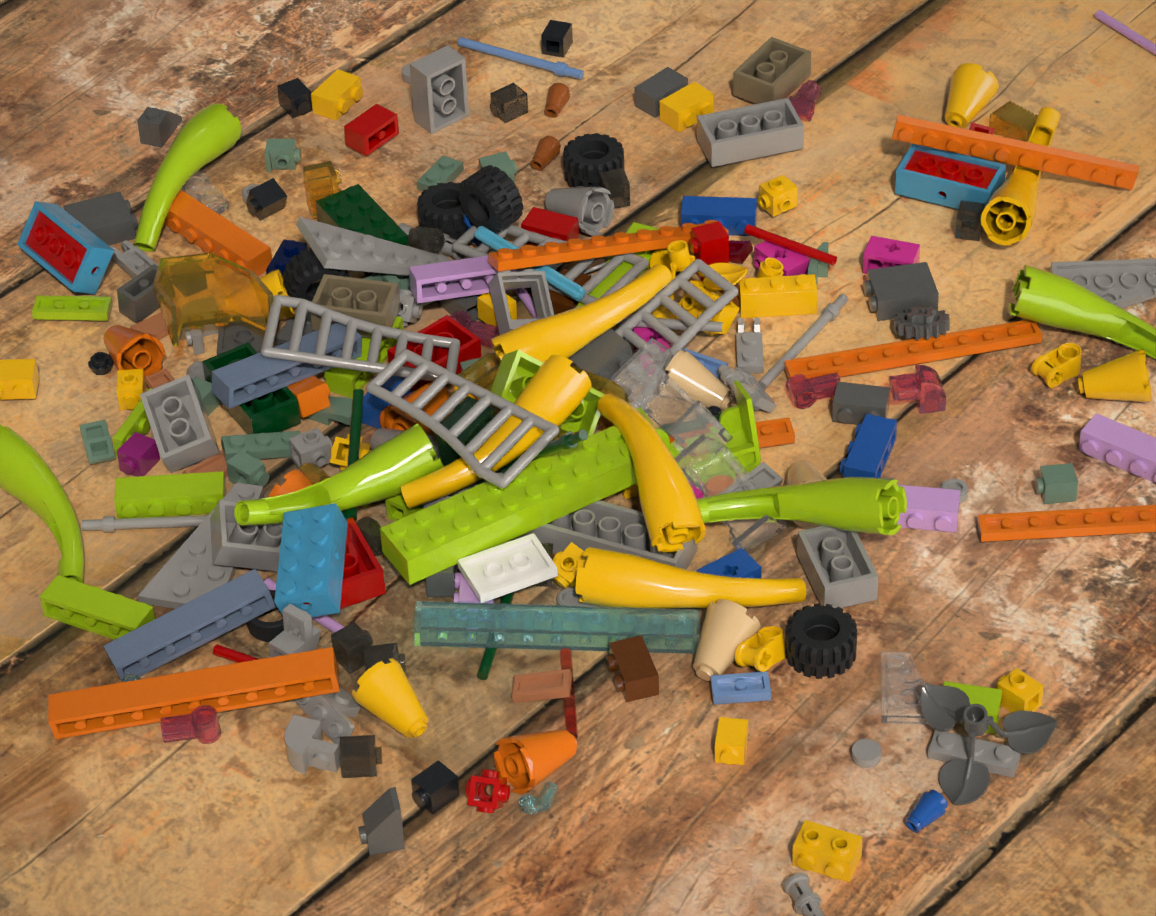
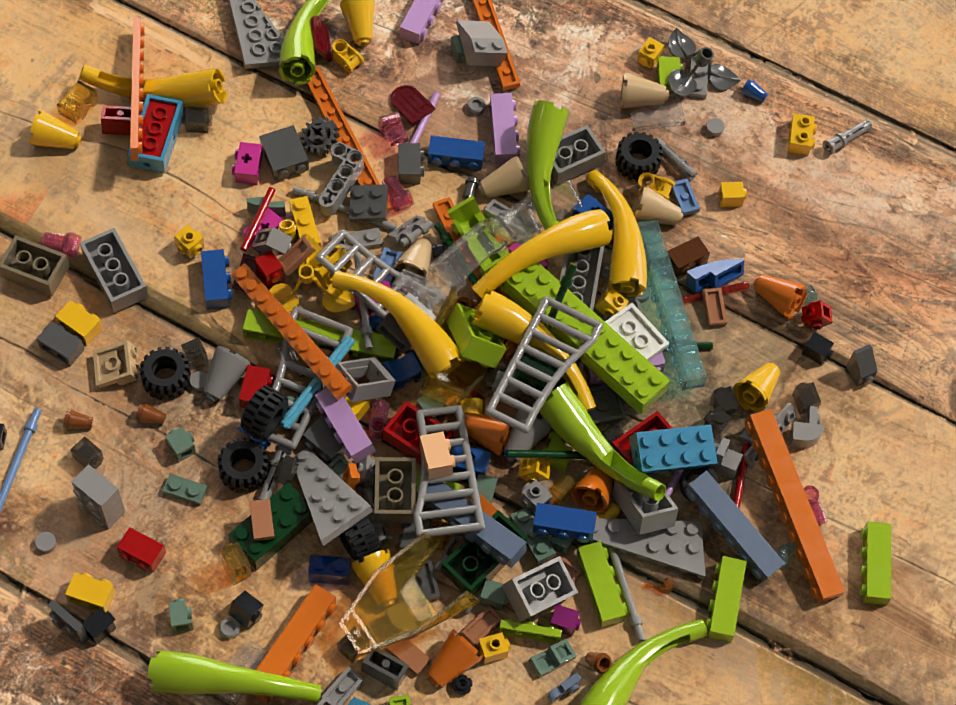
camera: 110 degrees left, 20 degrees up
(53, 446) = (569, 686): none -> sand blue plate
(68, 470) = (598, 661): none -> dark orange cone
(79, 778) = (876, 563): none -> lime brick
(145, 561) = (666, 587): none -> clear orange hand
(255, 452) = (564, 522): none -> blue brick
(306, 64) = (63, 619): none -> dark grey plate
(361, 202) = (261, 519): none -> nougat tile
(375, 324) = (436, 455): none -> light nougat brick
(392, 275) = (351, 475): none -> orange plate
(592, 688) = (714, 274): none -> blue slope
(625, 128) = (116, 364): none -> tan plate
(718, 259) = (296, 255): none -> nougat tile
(744, 242) = (272, 240): none -> light grey brick
(785, 701) = (679, 163): none -> light grey pin
(799, 352) = (368, 203): none -> dark grey plate
(817, 460) = (470, 189): none -> dark grey pin
(840, 329) = (330, 199): none -> light grey beam
(937, 434) = (421, 126): none -> lavender bar
(938, 650) = (641, 92): none -> tan cone
(967, 422) = (411, 103): none -> dark red window
(1054, 485) = (481, 43): none -> light grey slope
(1097, 338) = (321, 37): none -> dark red window

